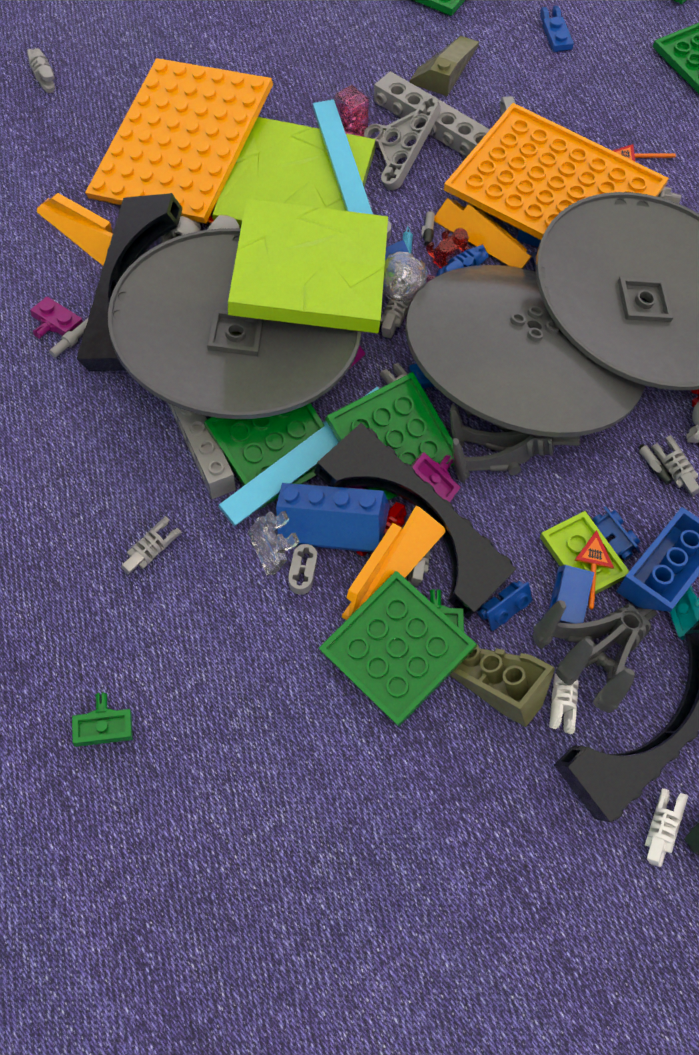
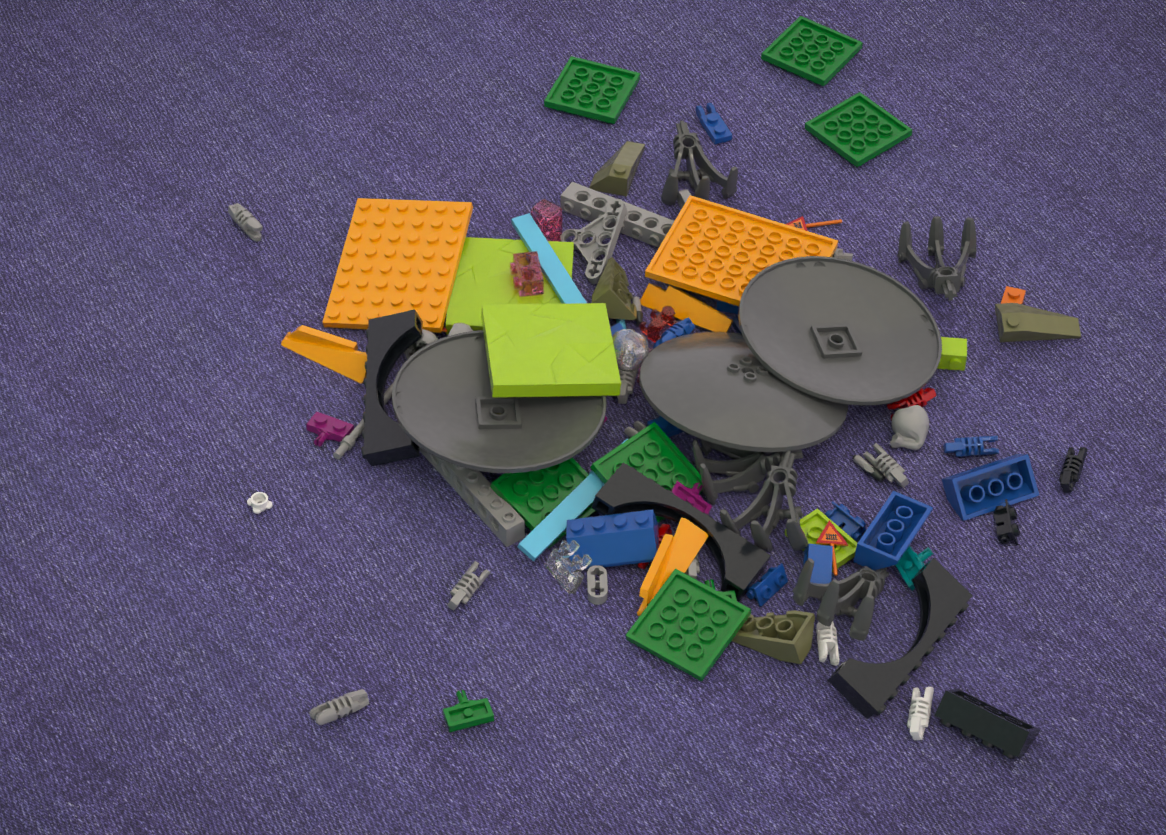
camera: 10 degrees left, 15 degrees down
(314, 168) = (527, 273): none -> brick
(405, 204) = (614, 292): none -> olive wedge
(523, 49) = (688, 147): none -> dark grey piece
(551, 551) = (773, 492): none -> dark grey piece

